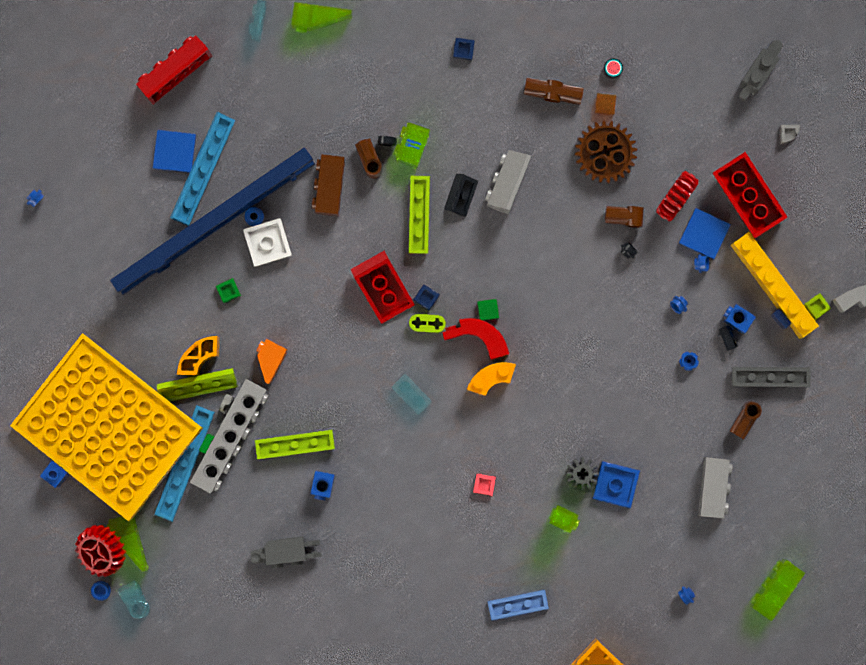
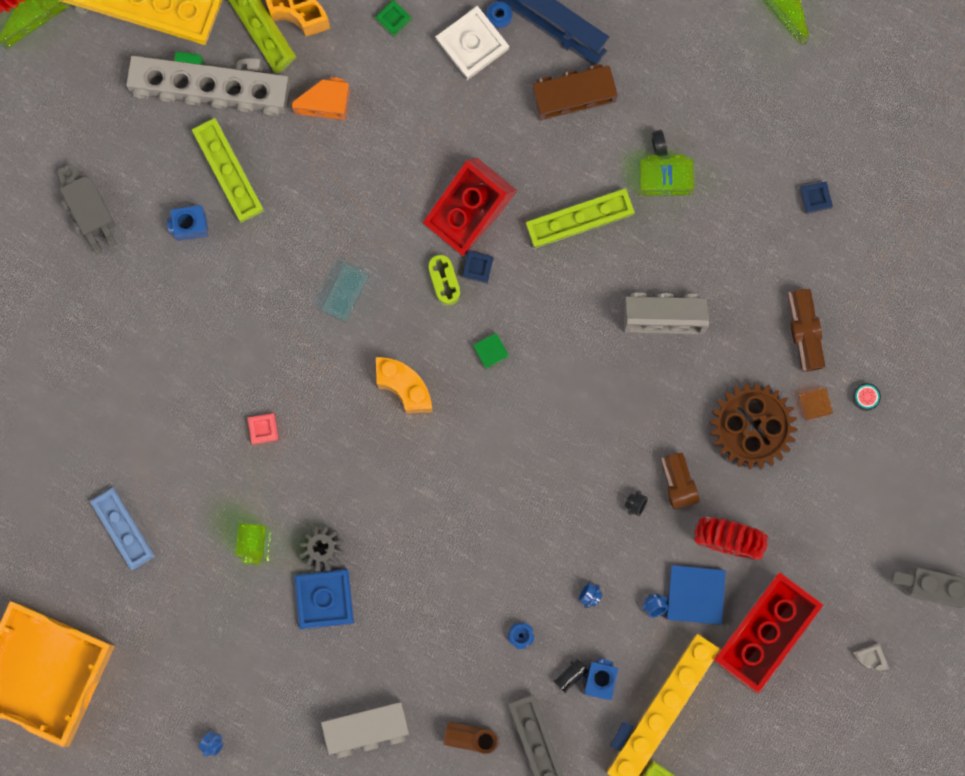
camera: 70 degrees right, 5 degrees down
(183, 468) = (150, 44): dark azure tile -> none
(368, 157) = (629, 128): reddish brown piece -> none
(461, 195) = (626, 263): black slope -> none
(486, 332) = (456, 366): red arch -> none

